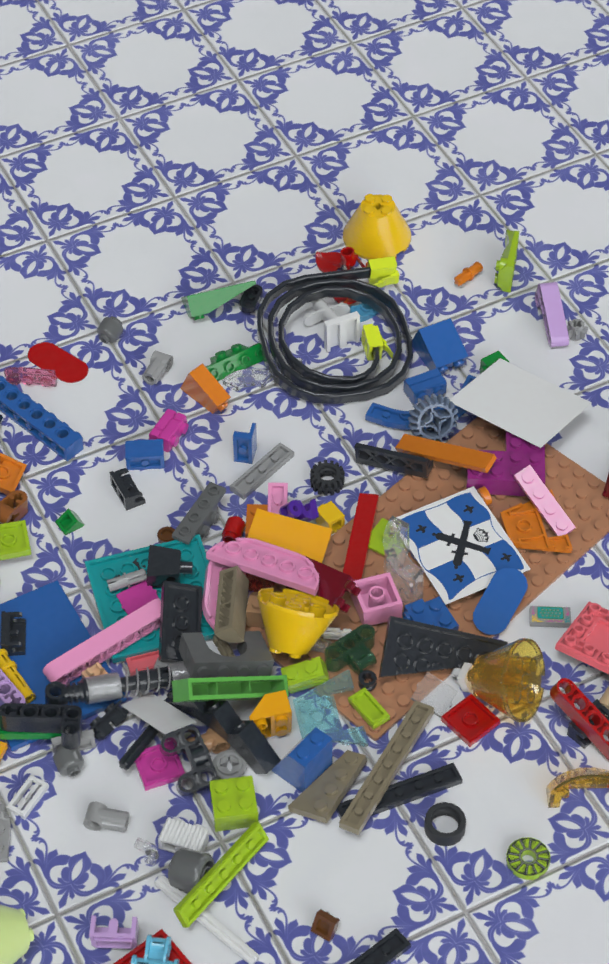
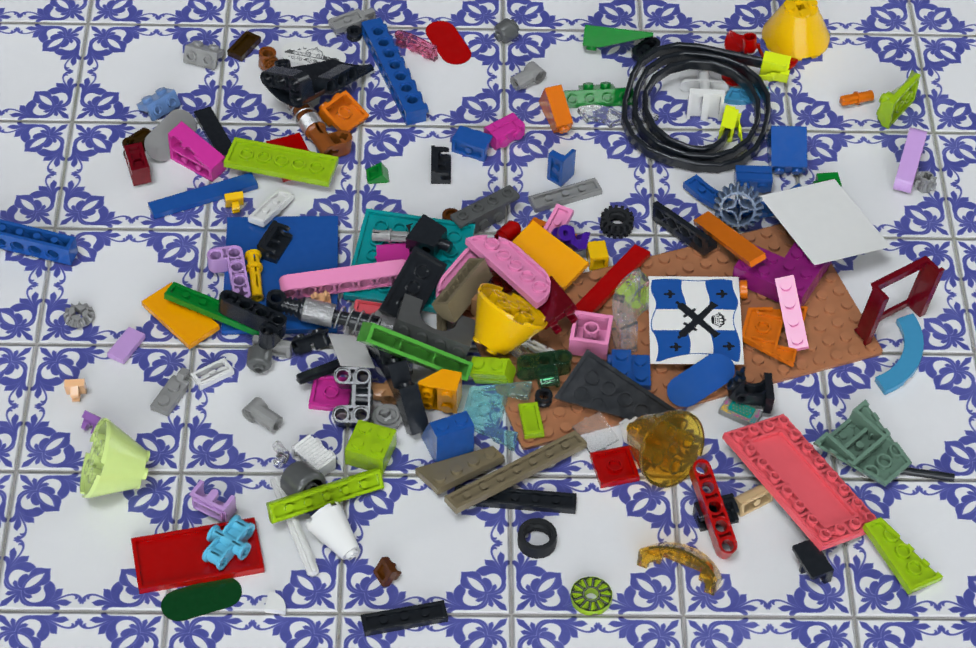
camera: 25 degrees right, 0 degrees up
(253, 907) = (334, 531): none -> white cone
(557, 592) = (752, 393): none -> black tile

